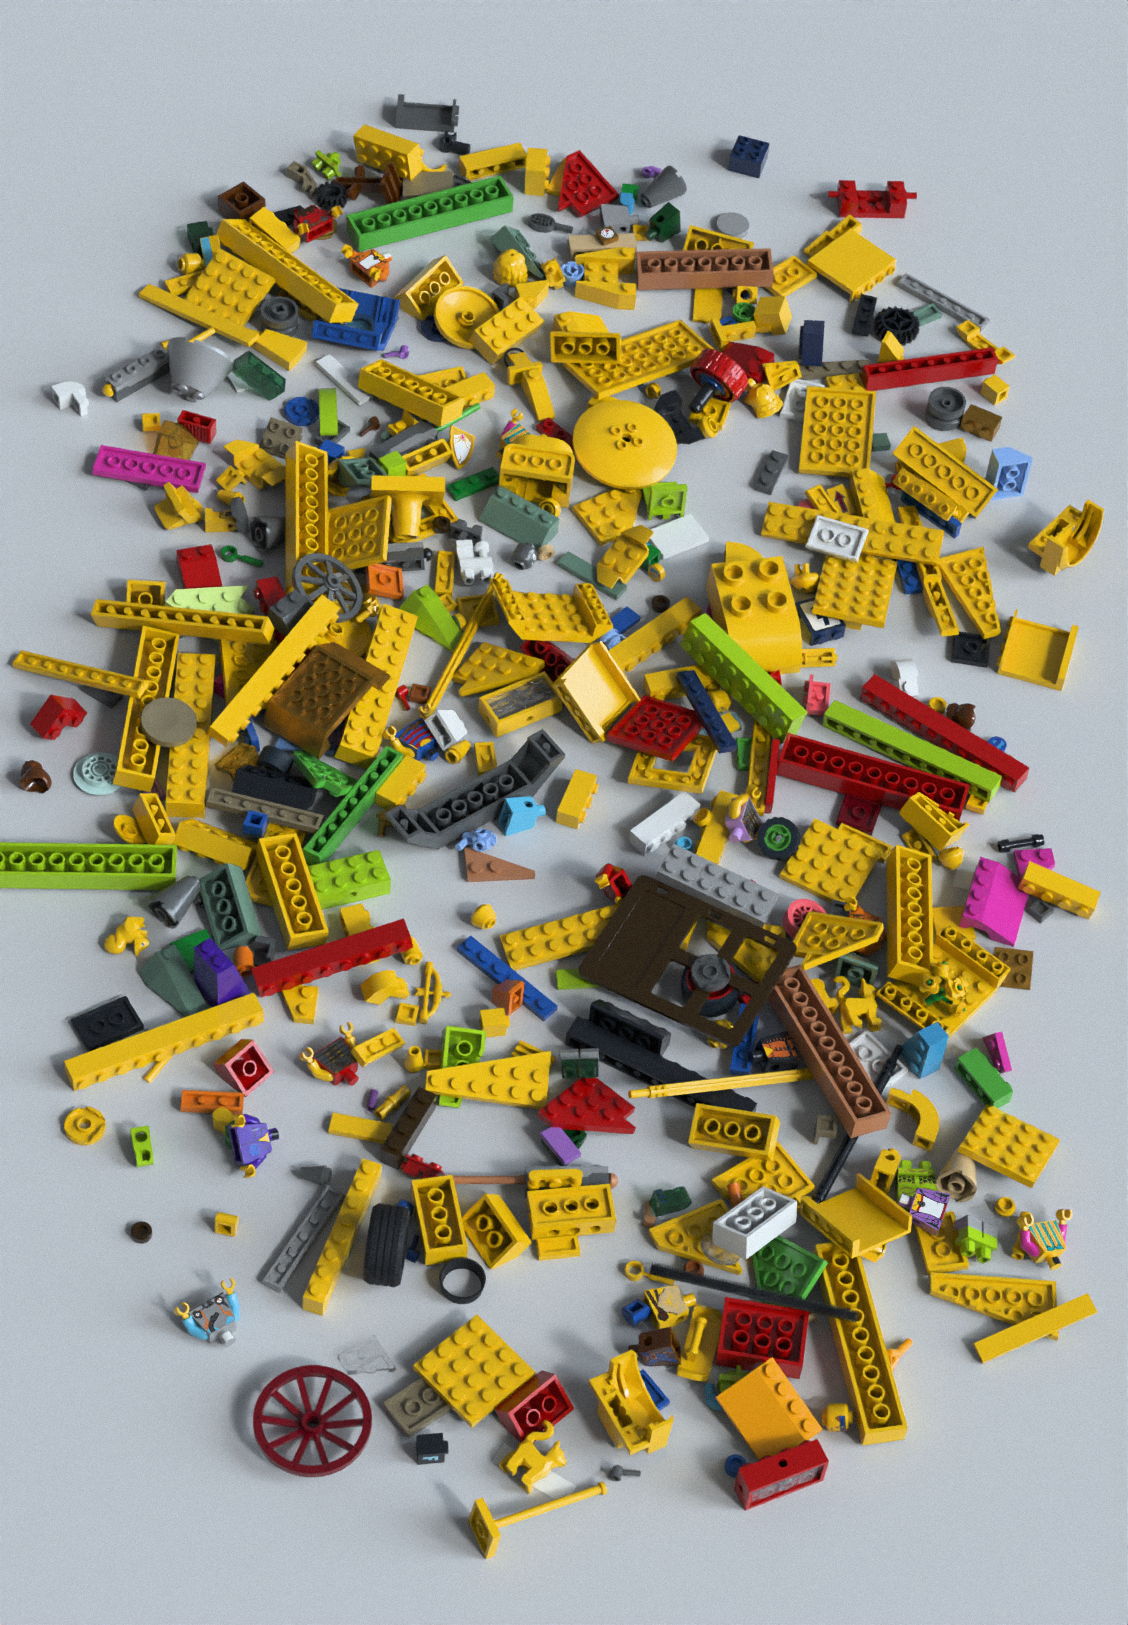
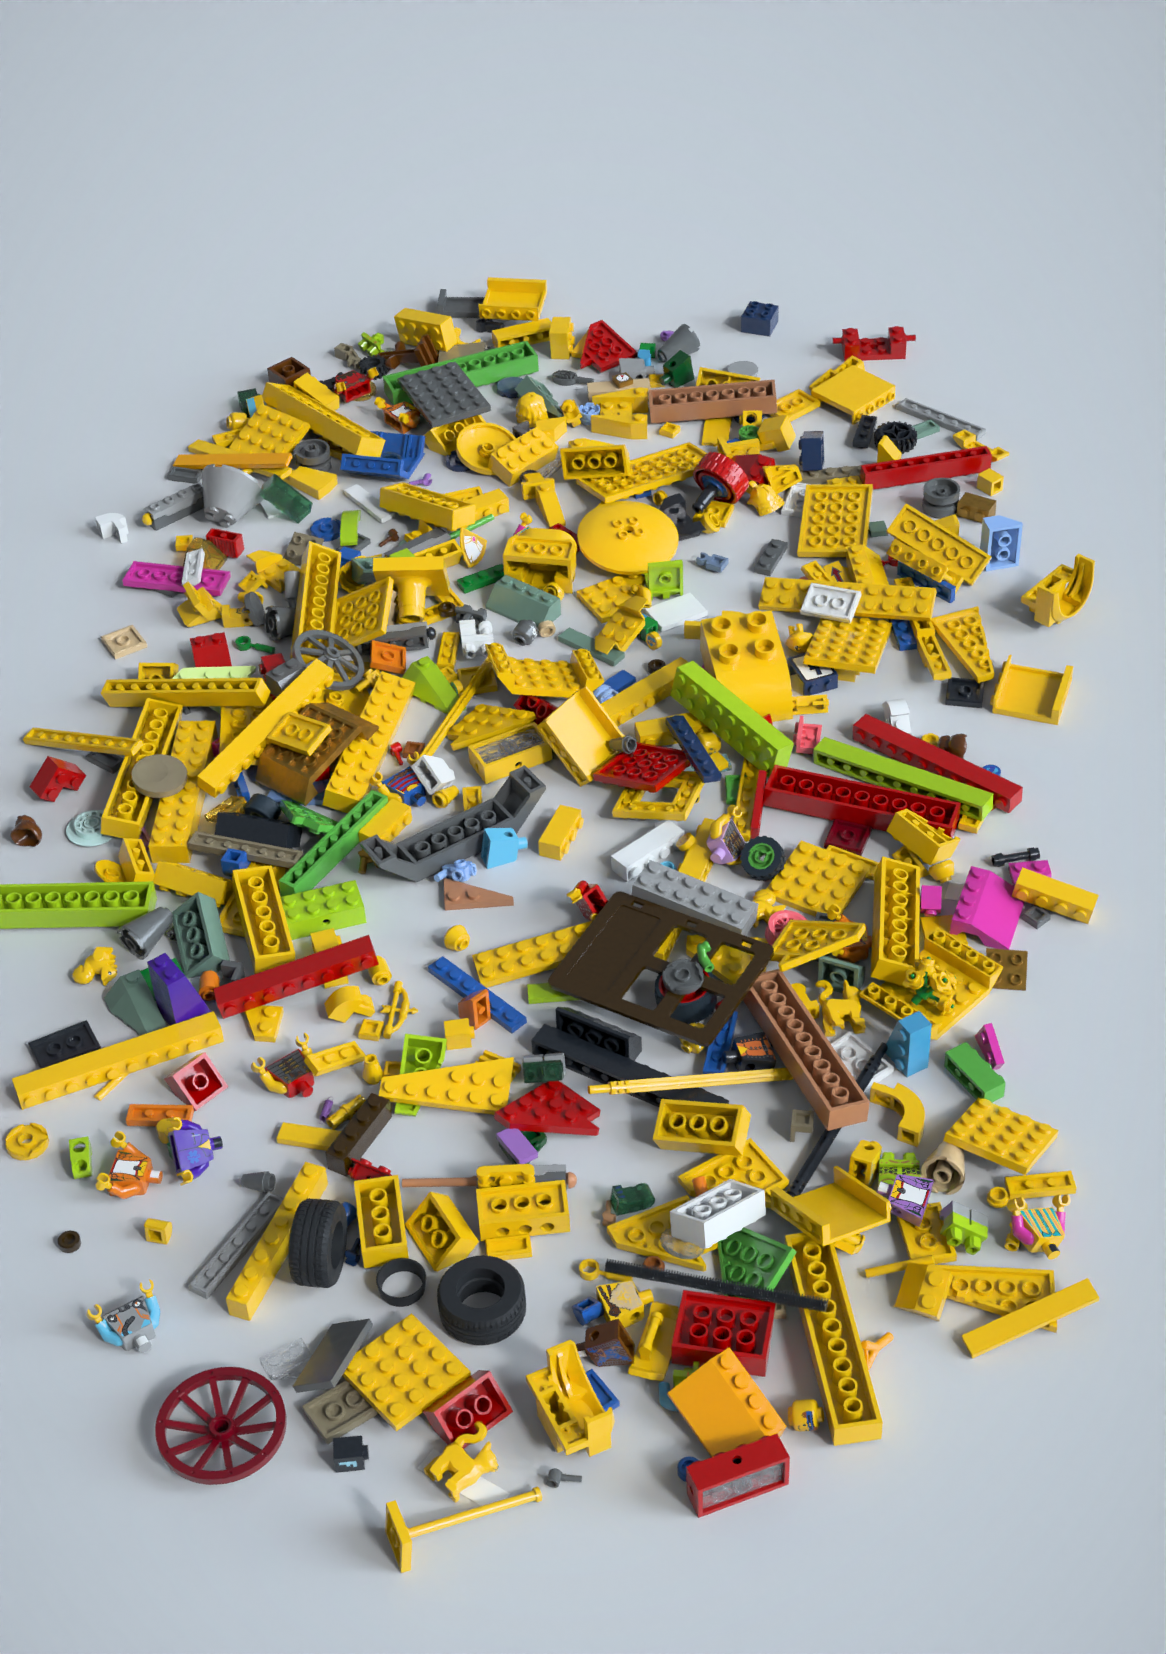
camera: 10 degrees right, 10 degrees down
(101, 545) = (123, 642): none -> tan tile
(140, 330) = (185, 475): none -> dark grey tile
(168, 459) = (193, 567): none -> white plate
(192, 1161) = (130, 1171): none -> torso
(193, 319) = (238, 461): none -> light orange tile
(277, 489) = (291, 582): none -> light grey wheel
(311, 682) = (299, 733): none -> yellow plate
(408, 1355) = (333, 1355): none -> dark grey tile
(417, 246) = (444, 394): none -> dark grey plate
(481, 116) = (513, 299): none -> yellow panel
(482, 230) = (507, 386): none -> tile
(533, 1326) = (486, 1324): none -> black tyre
(540, 344) = (553, 467): none -> clear dish
(637, 701) = (624, 744): none -> dark grey cone
(644, 514) = (642, 591): none -> yellow arm
(658, 300) = (669, 430): none -> yellow tile
(696, 561) = (692, 629): none -> yellow tile
(712, 477) = (715, 562): none -> sand blue plate
(729, 954) = (703, 959): none -> bright green arm
(780, 883) = (765, 899): none -> yellow animal
(918, 1274) = (898, 1266): none -> yellow bar
(939, 1299) = (924, 1290): none -> yellow slope
(942, 892) = (930, 900): none -> dark pink slope
(1043, 1195) = (1040, 1185): none -> yellow plate

